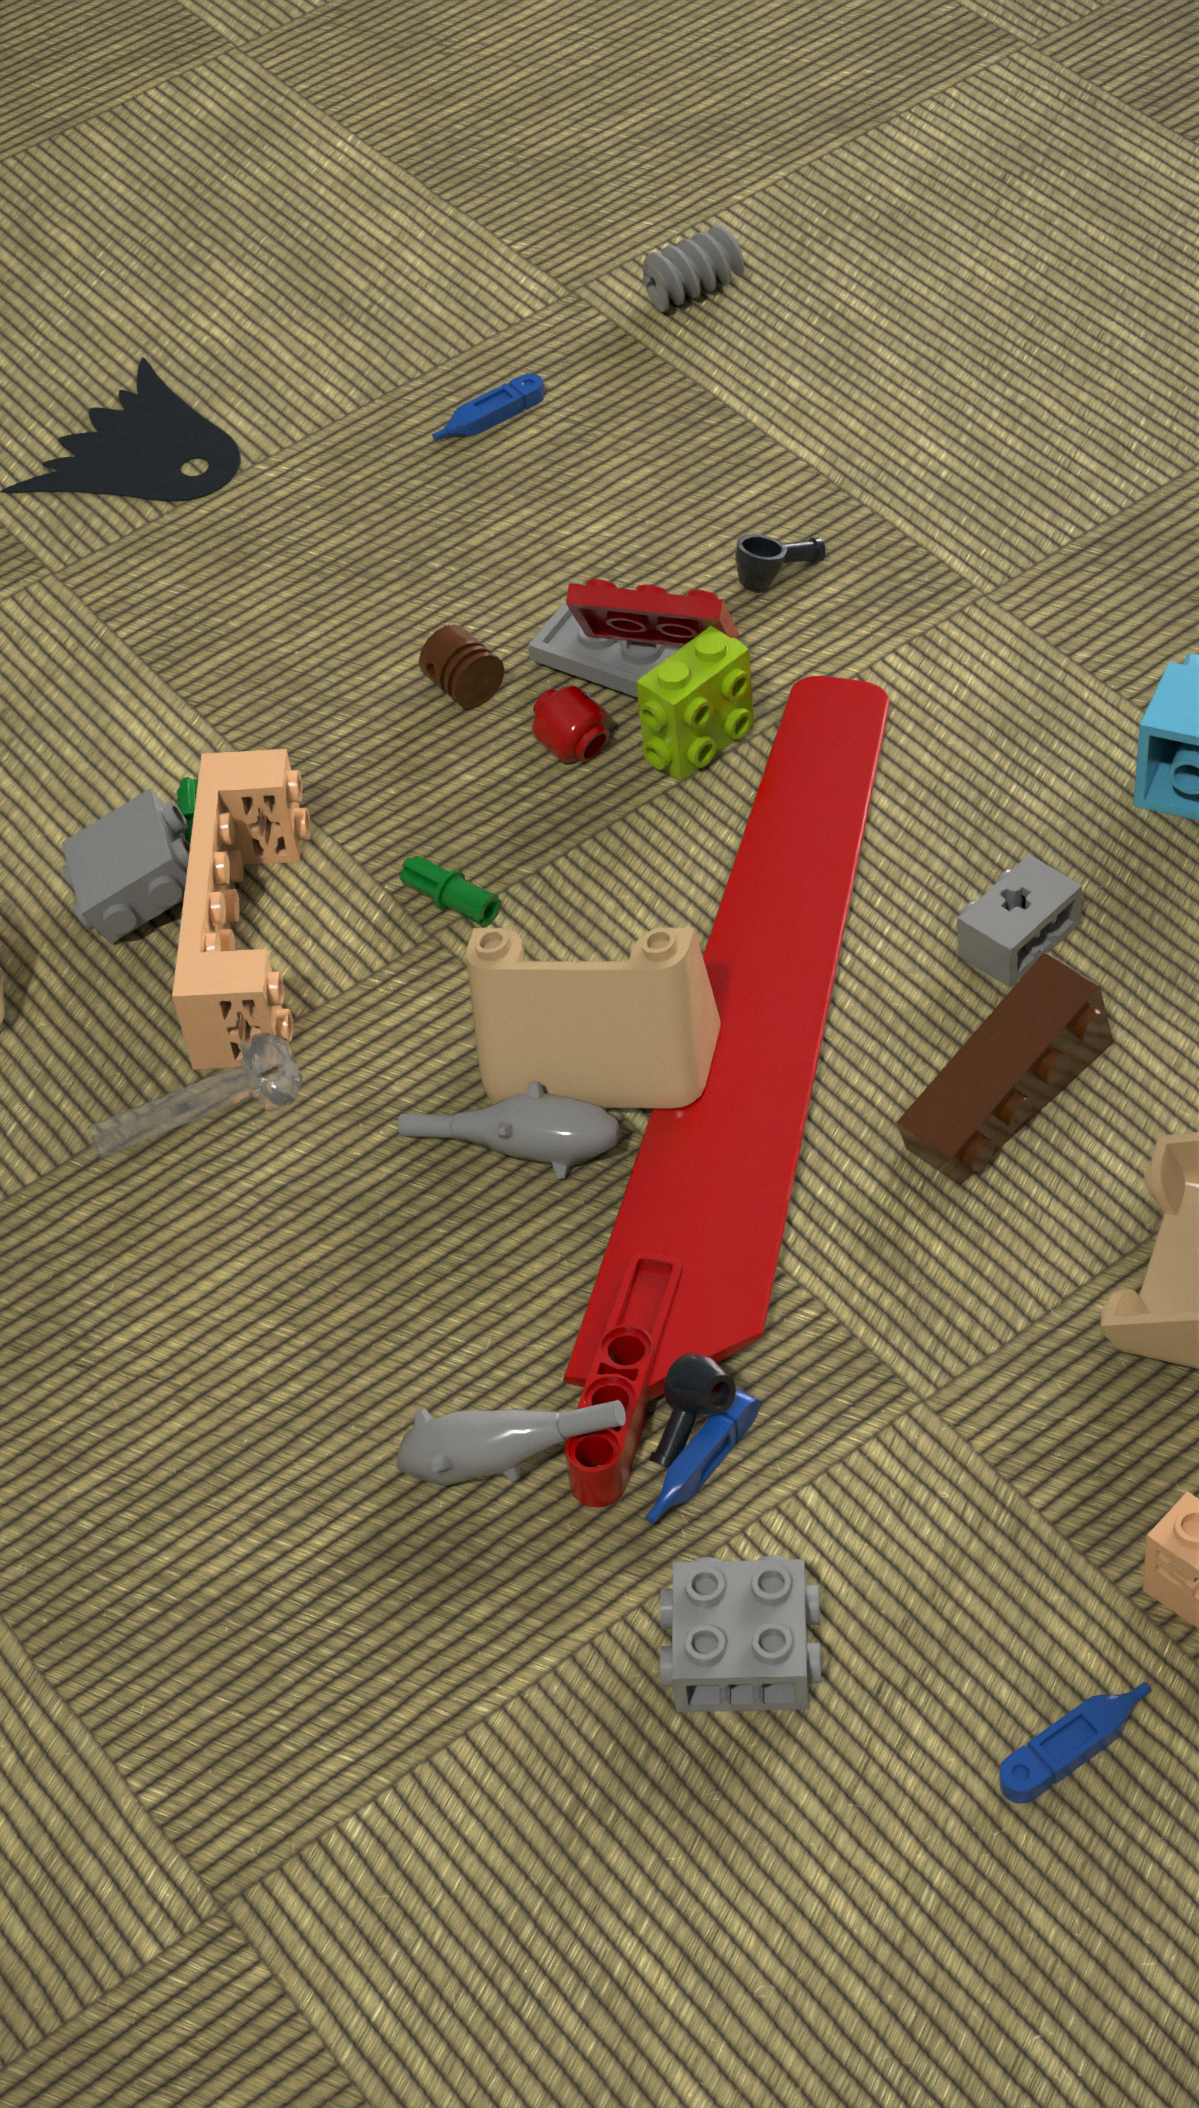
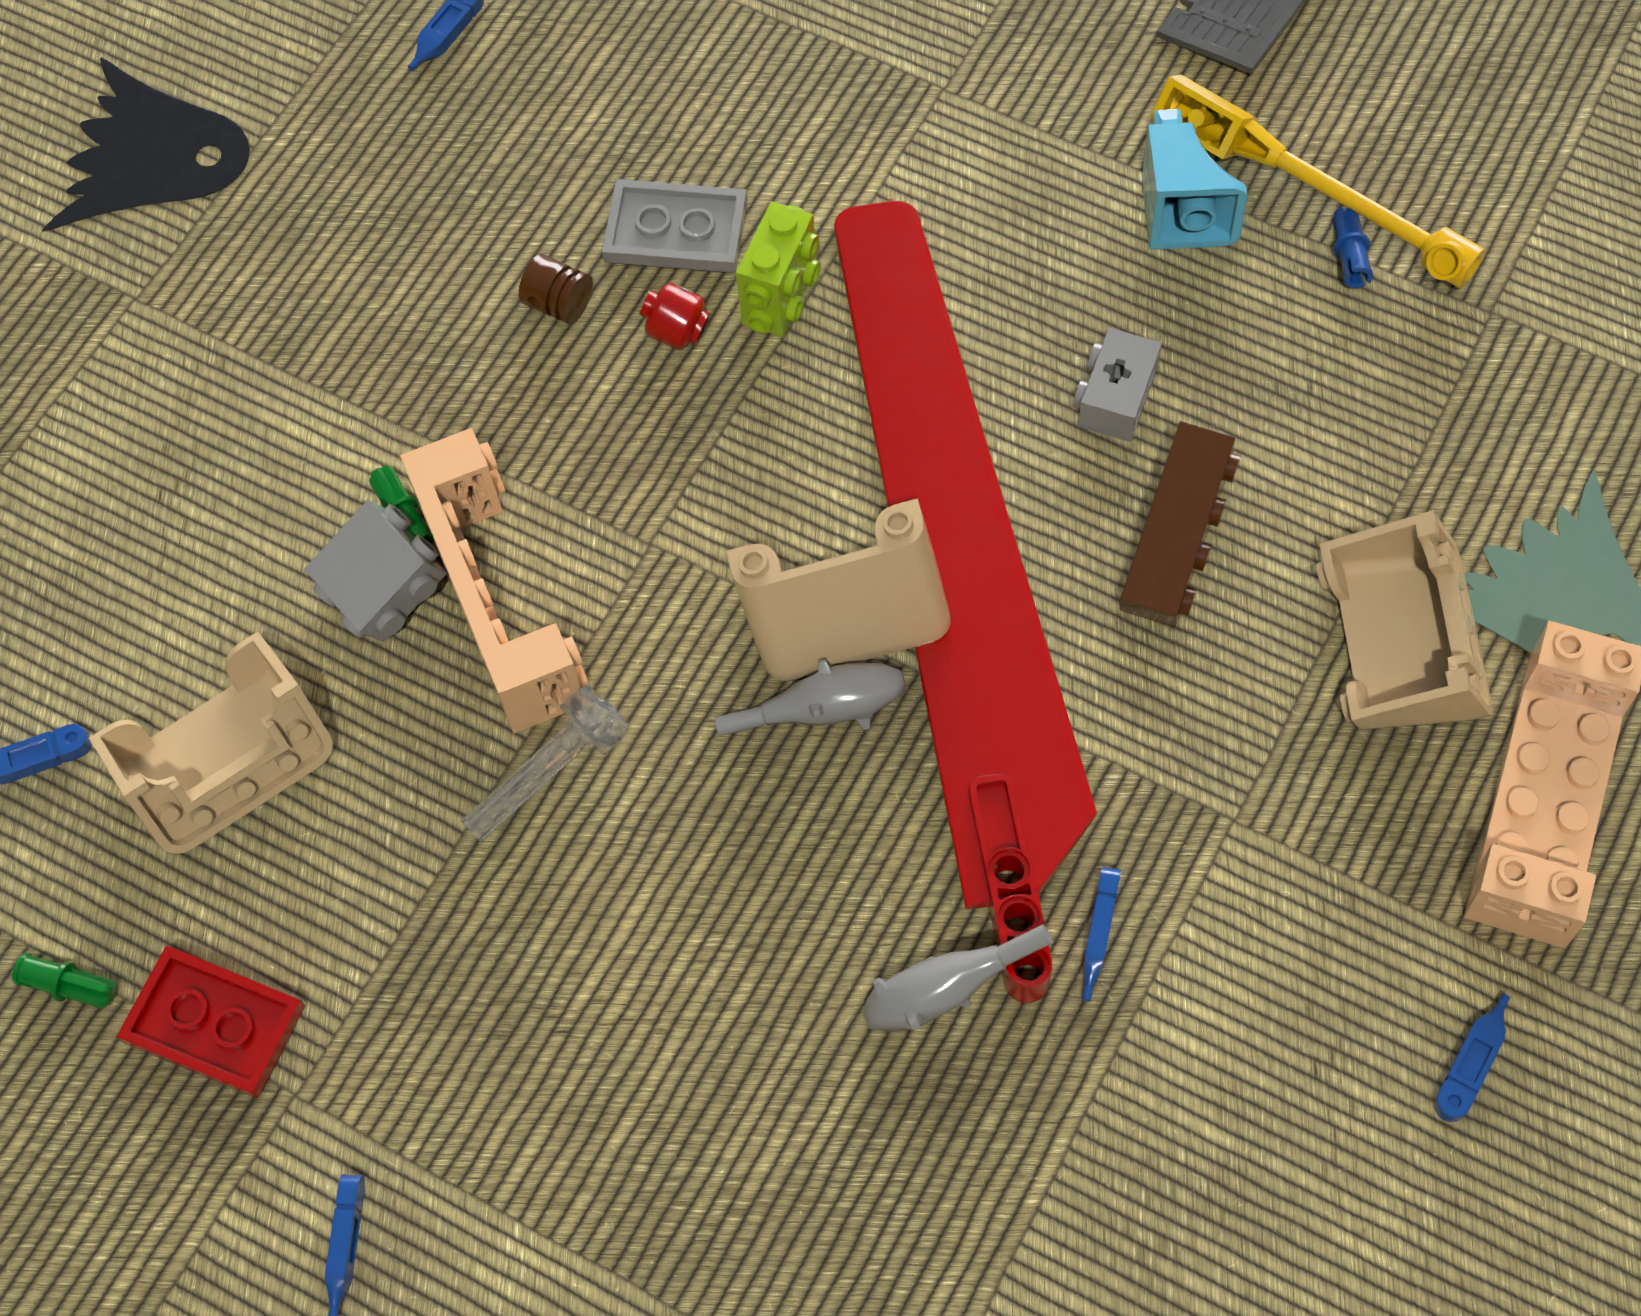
camera: 25 degrees left, 15 degrees up
(450, 890) = (648, 500): green axle -> none
(646, 613) = (711, 201): red plate -> none
(692, 1389) = (1077, 884): black bar -> none
(740, 1635) = (1204, 1070): light grey brick -> none
(762, 557) = (756, 109): black bar -> none

